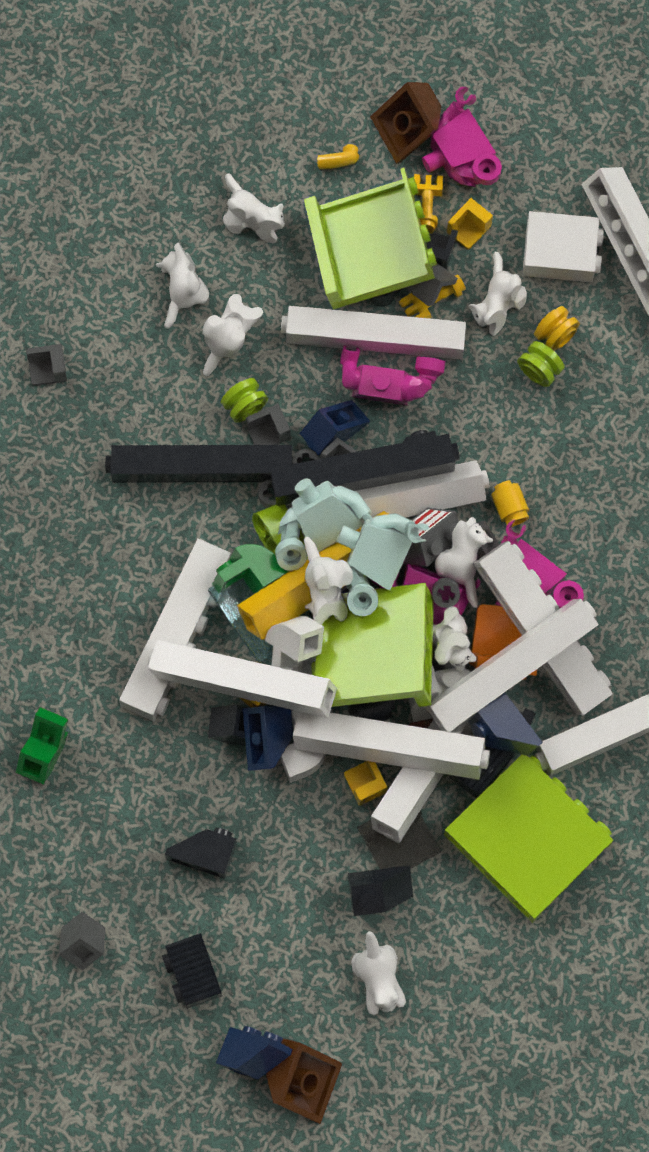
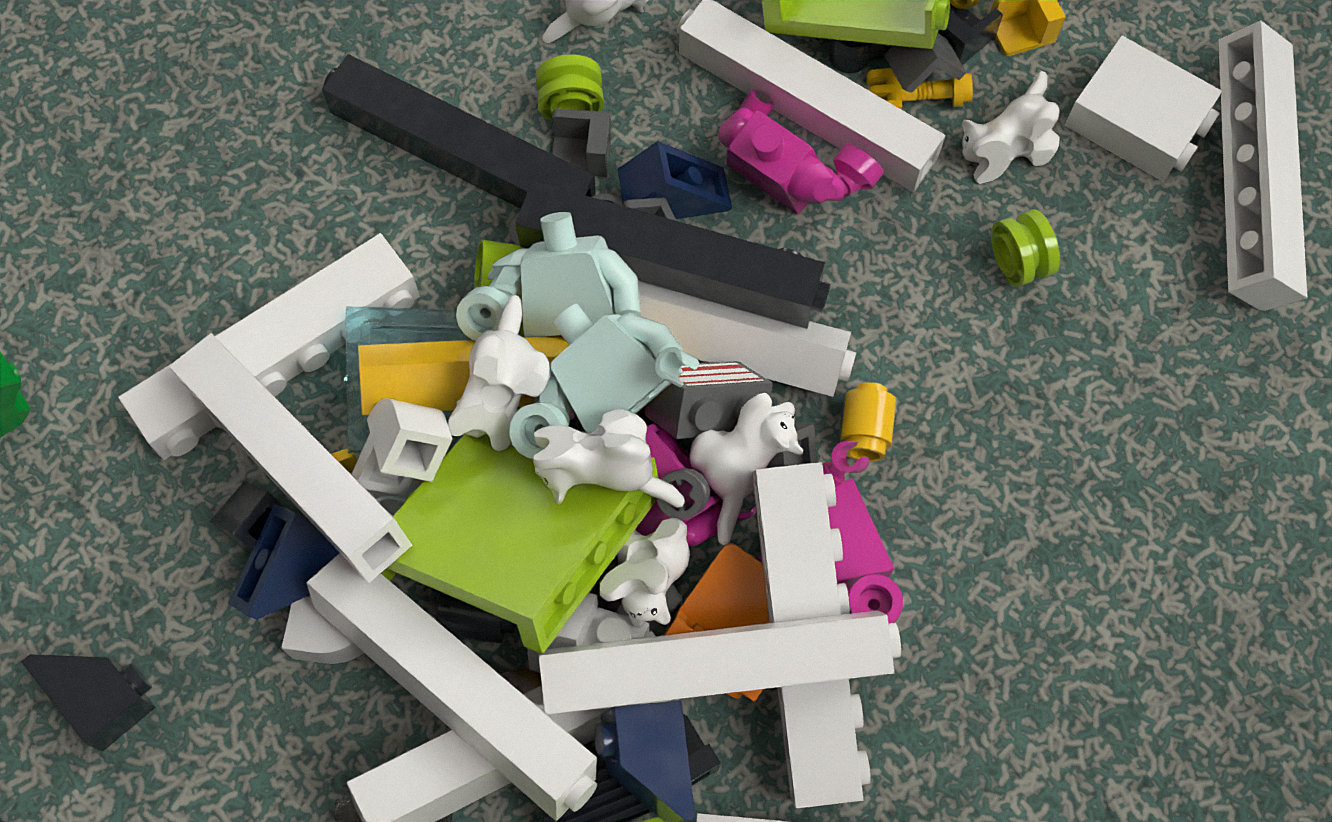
camera: 30 degrees right, 5 degrees down
(252, 564) = (424, 300): green brick -> none
(366, 782) = (398, 724): yellow panel -> none
(406, 595) = (608, 457): none -> white animal
(557, 328) = (1077, 210): yellow wheel -> none

